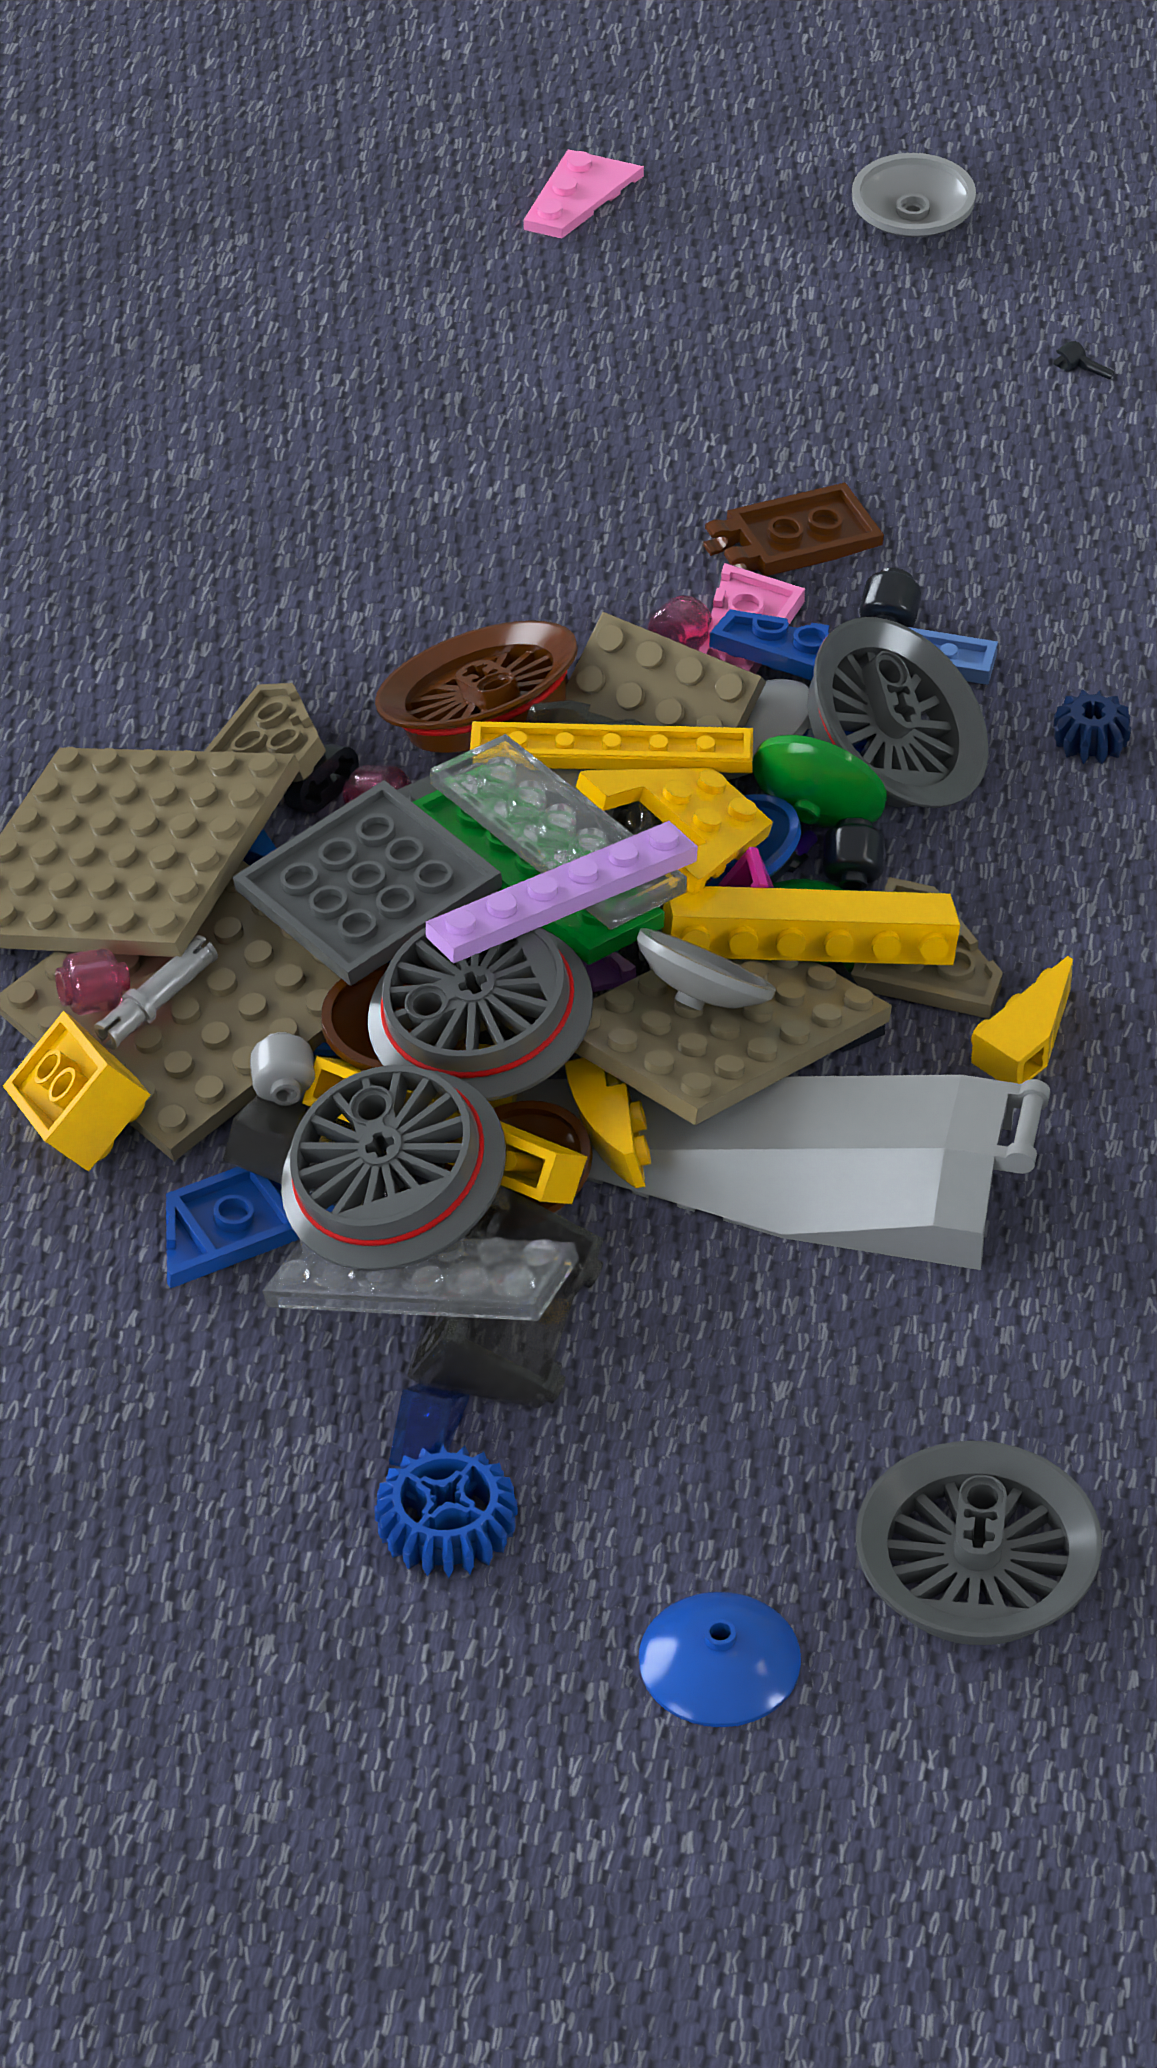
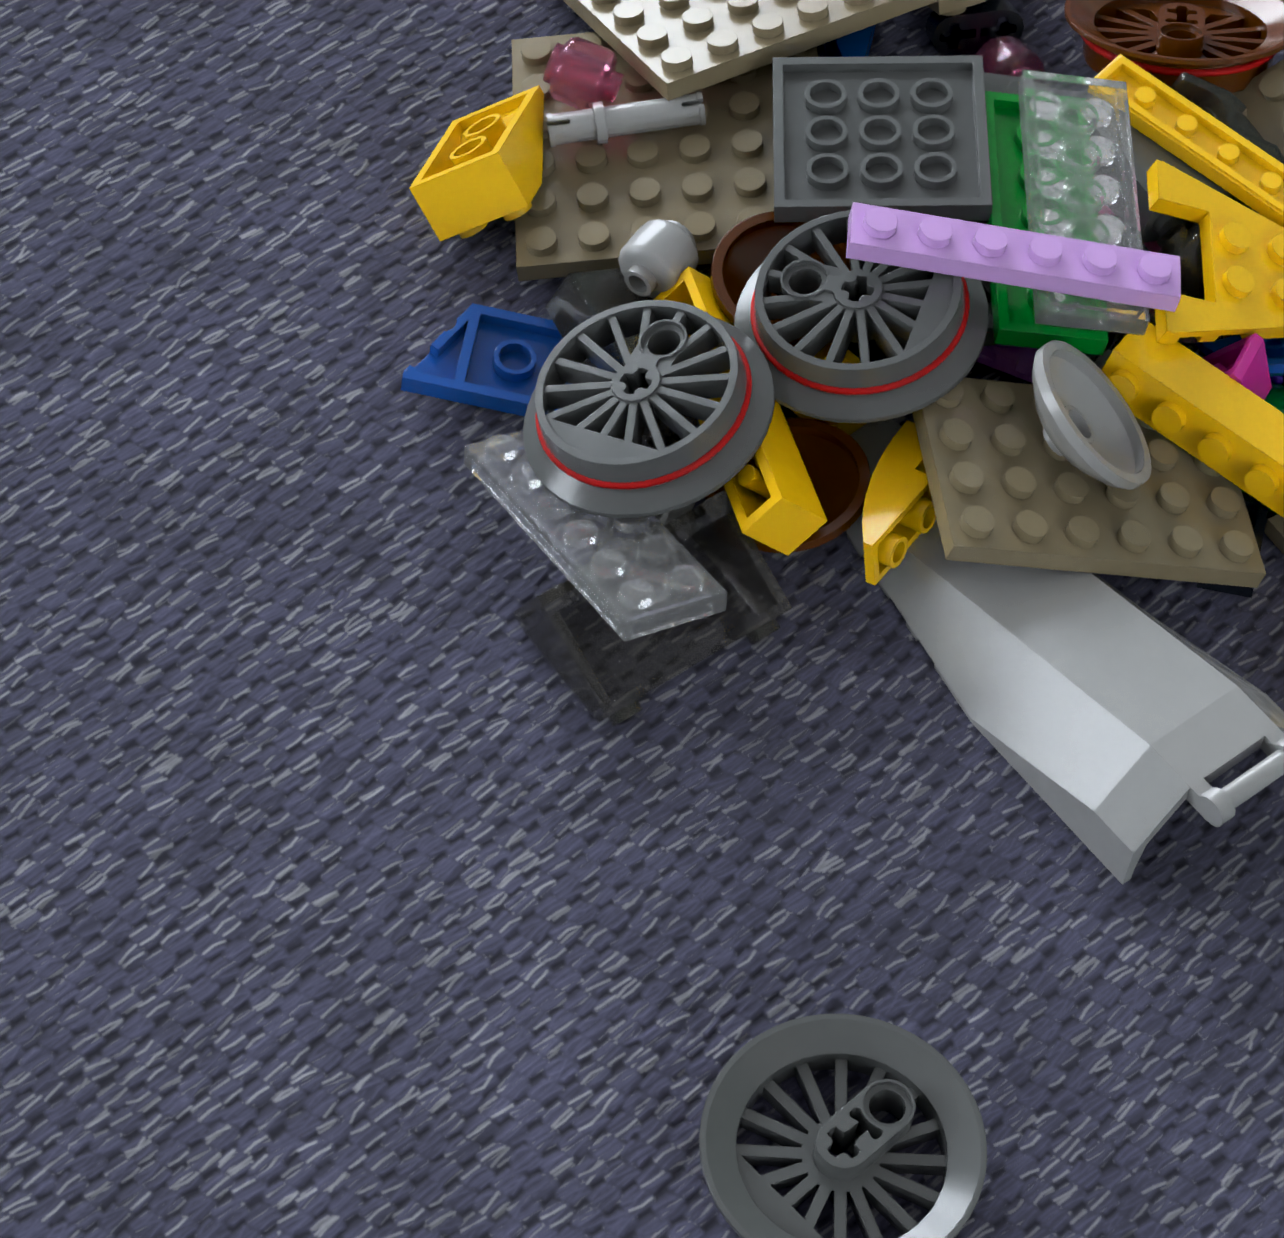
camera: 35 degrees right, 10 degrees up
(426, 1420) = (485, 665): clear blue slope -> none
(450, 1525) = (443, 732): blue gear -> none
(719, 1679) = (516, 1106): blue dish -> none

